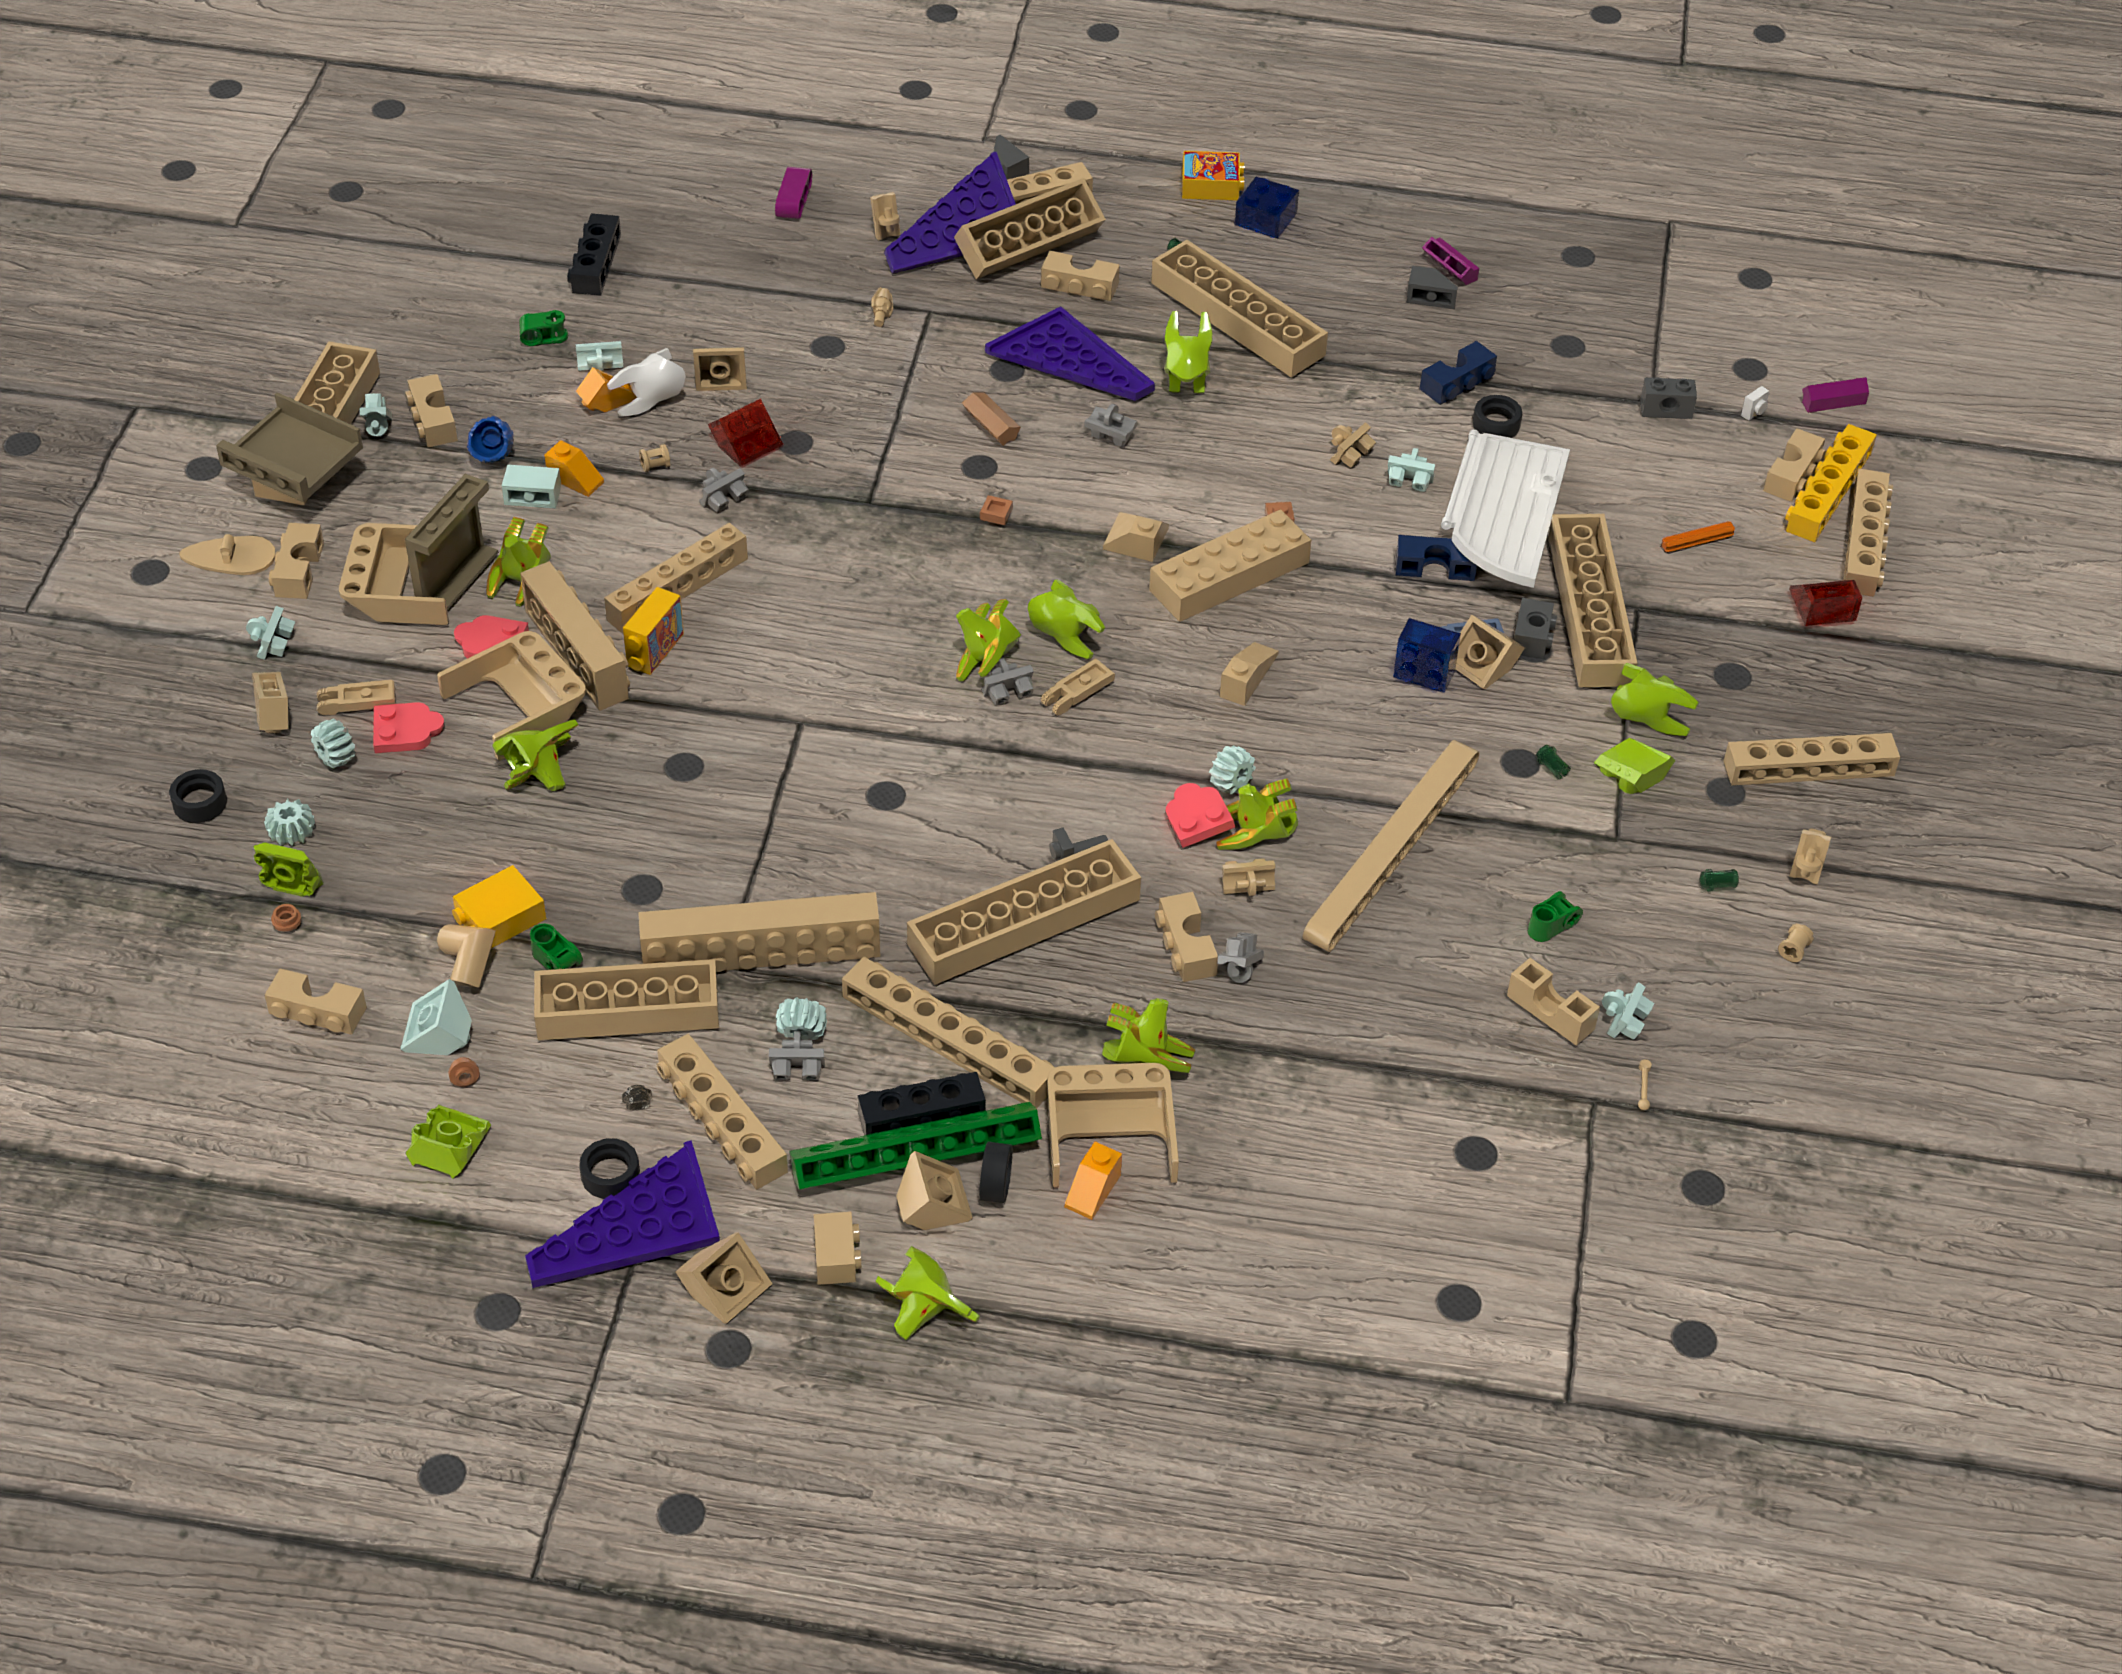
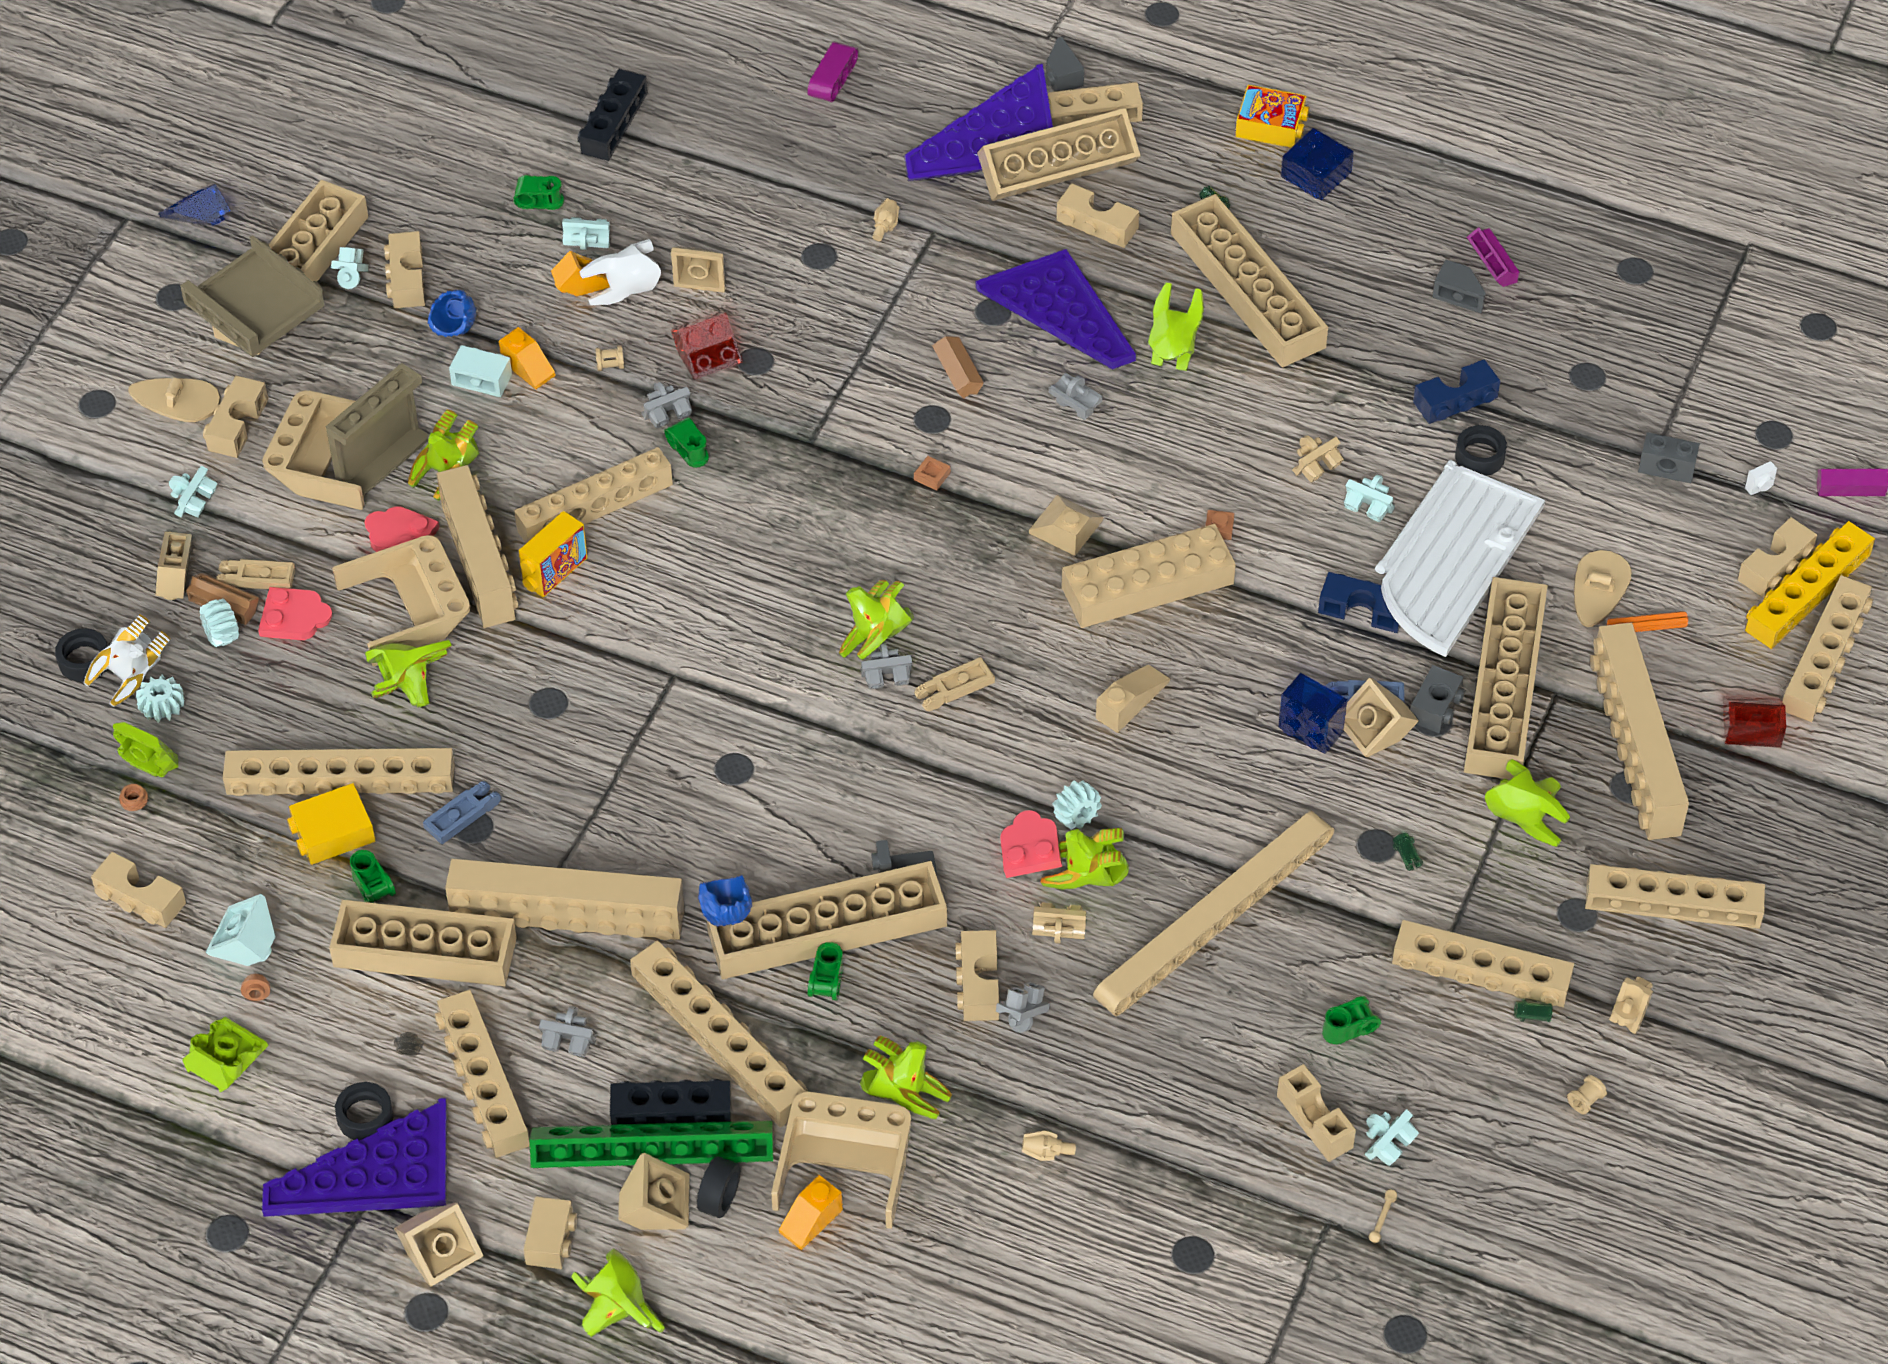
camera: 15 degrees right, 5 degrees up
(209, 386) = (198, 208): none -> clear blue slope
(248, 789) = (129, 658): none -> white piece
(308, 716) = (205, 589): none -> medium nougat piece
(472, 951) = (293, 866): tan brick -> none
(478, 859) = (320, 771): none -> tan brick
(627, 877) = (461, 812): none -> sand blue hinge
(753, 518) = (688, 442): none -> green piece
(801, 1016) = (581, 993): light aqua gear -> none
(885, 215) = (915, 115): tan hips -> none
(926, 904) = (725, 901): none -> blue hair
(1038, 958) = (826, 976): none -> green piece
(1064, 617) = (962, 607): lime piece -> none
(1302, 1078) = (1045, 1145): none -> tan piece
(1634, 765) = (1490, 869): lime slope -> none
(1643, 513) = (1599, 585): none -> tan shield
(1658, 845) = (1472, 952): none -> tan brick
(1731, 624) = (1639, 732): none -> tan brick

